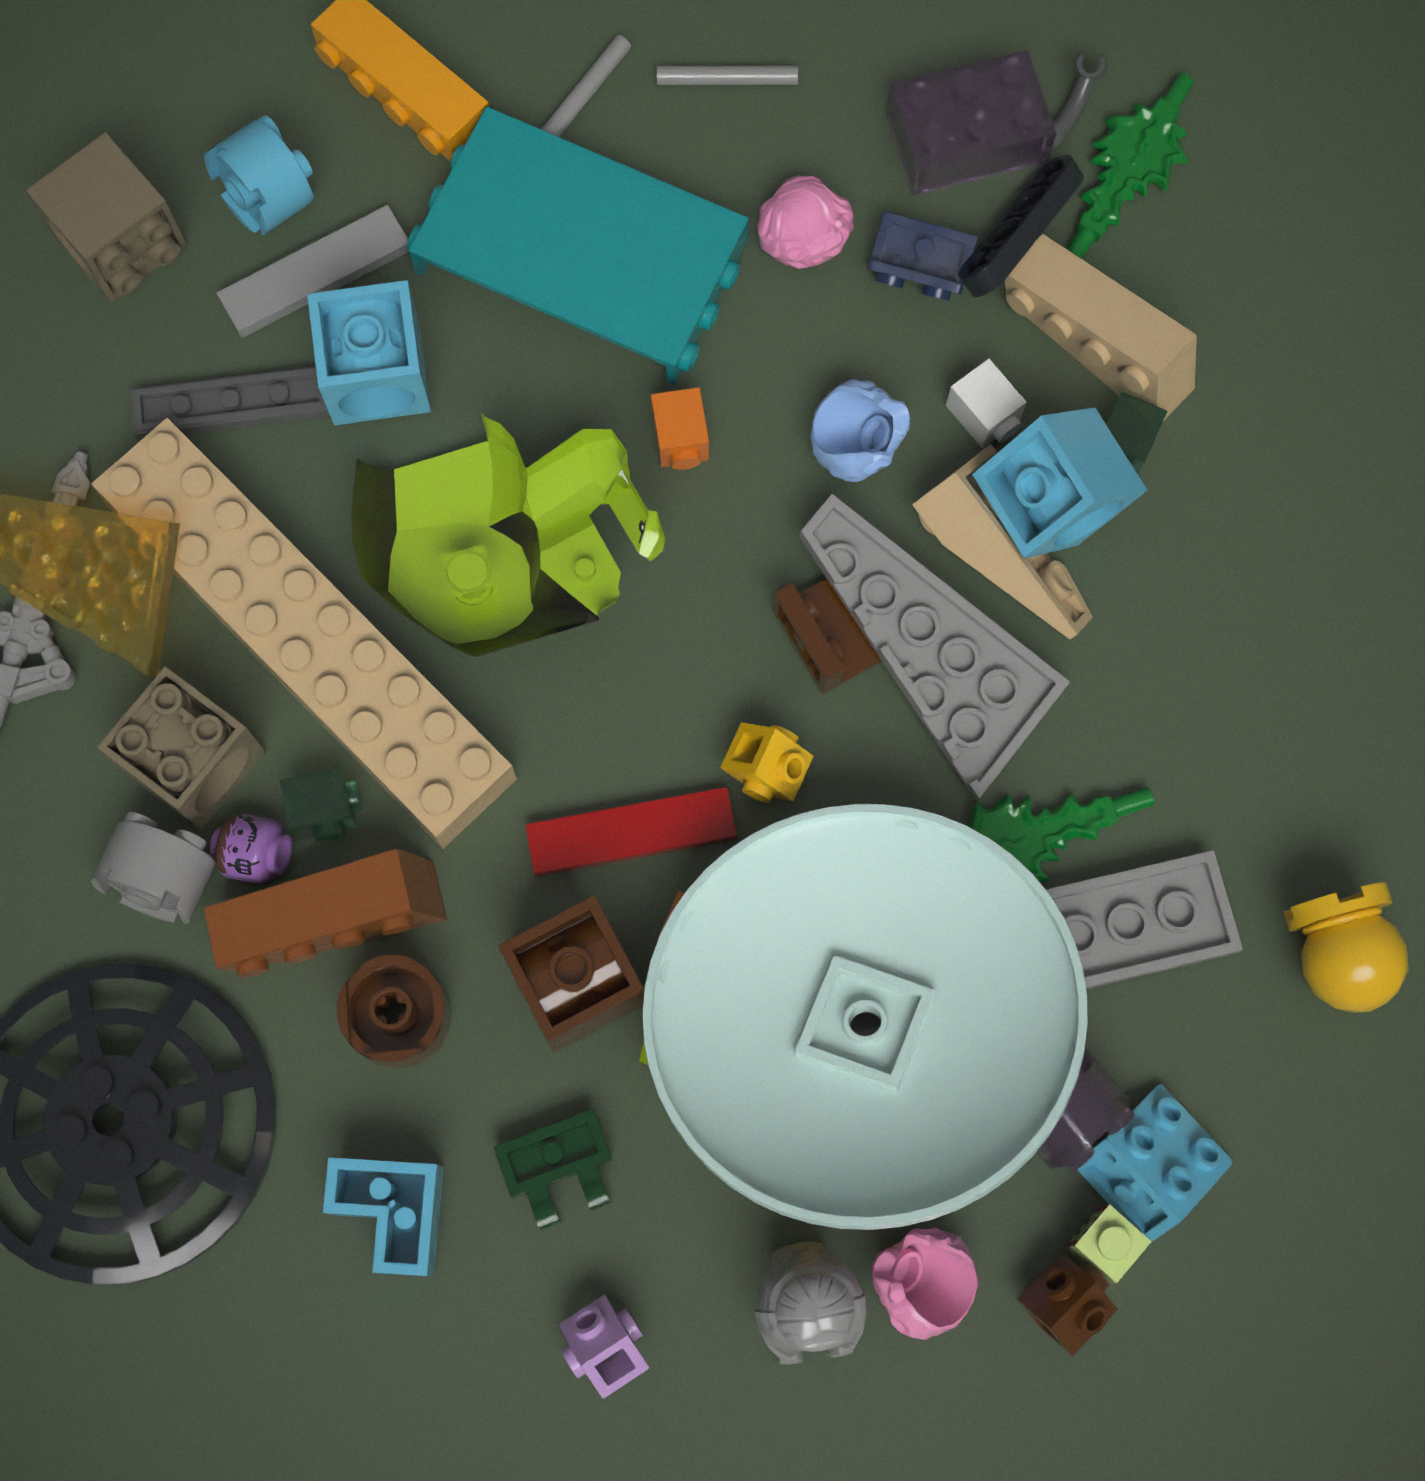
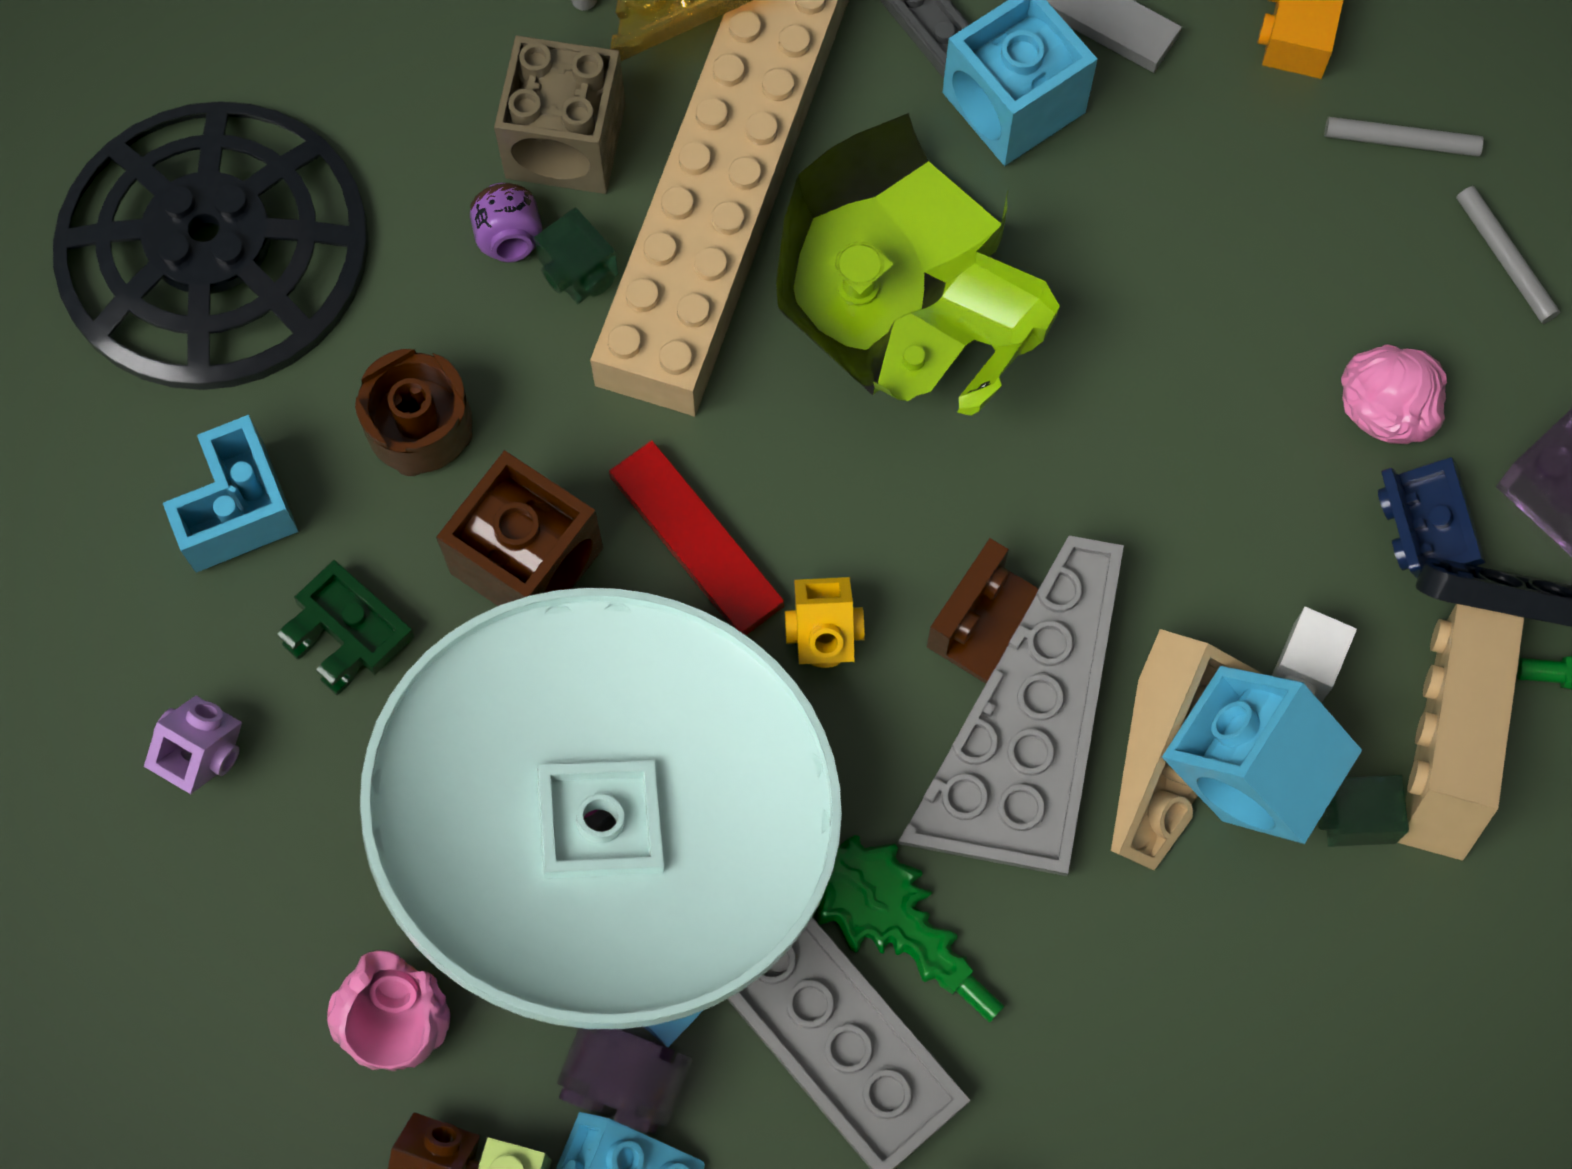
camera: 65 degrees right, 5 degrees down
(154, 869) = (443, 149): light grey brick -> none
(325, 912) = (480, 312): dark orange wedge -> none
(582, 240) = (1249, 209): teal panel -> none
(680, 428) = (1115, 384): orange brick -> none
(809, 1304) = (312, 908): light grey hair -> none
(858, 430) = (1208, 542): light blue hair -> none

